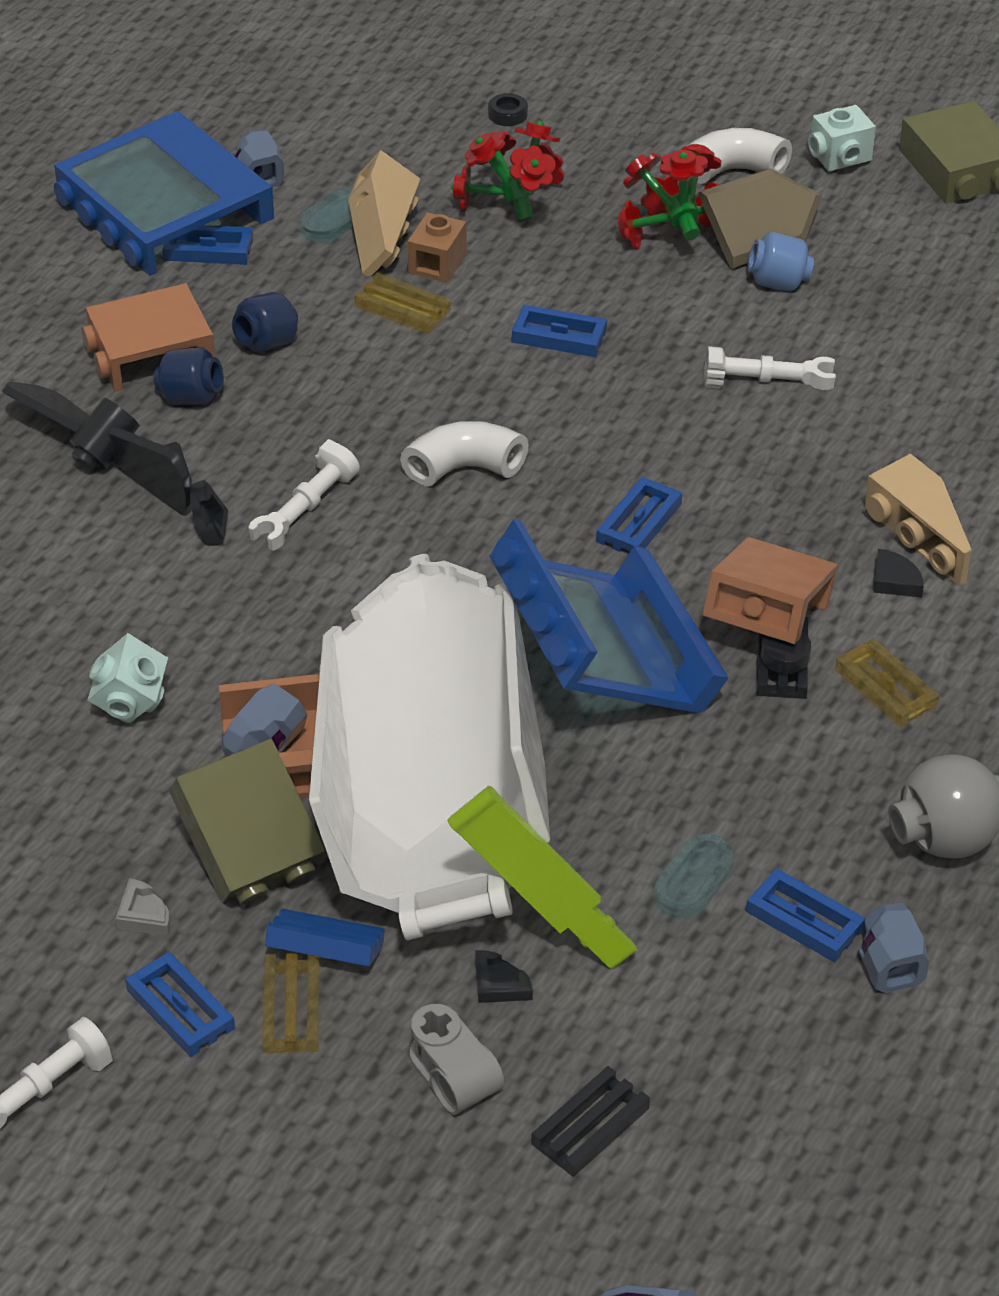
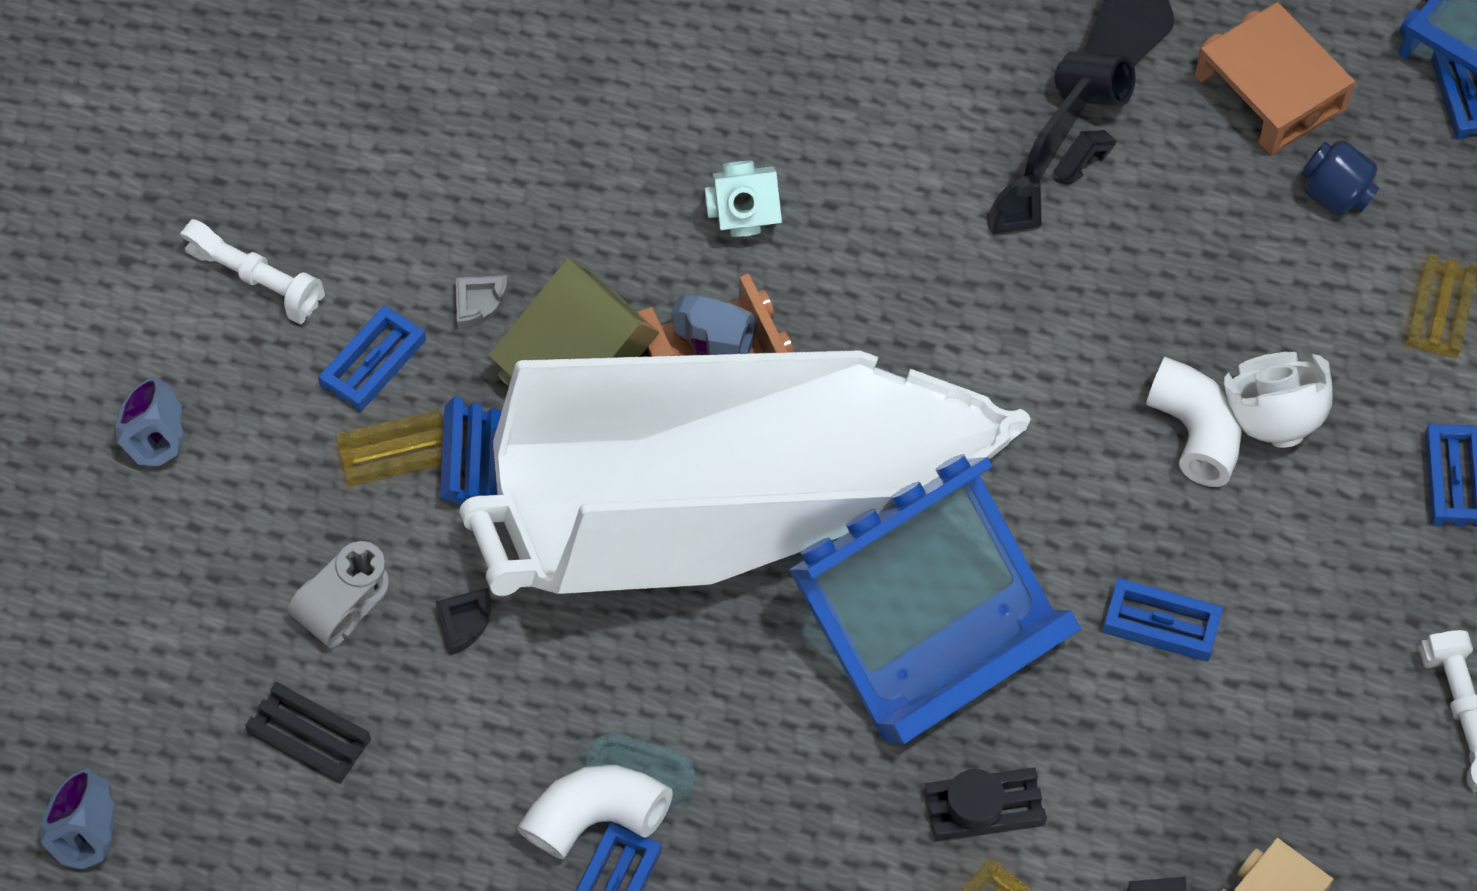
camera: 75 degrees right, 15 degrees up
(189, 377) = (1221, 130): dark blue head -> none
(193, 1191) = (150, 423): none -> sand blue rock
(336, 465) = (1080, 289): white piece -> none
(468, 388) = (1280, 397): none -> white cylinder
(539, 874) = (533, 604): lime piece -> none
(726, 902) = (594, 797): none -> white cylinder
(768, 589) = (1054, 758): nougat panel -> none

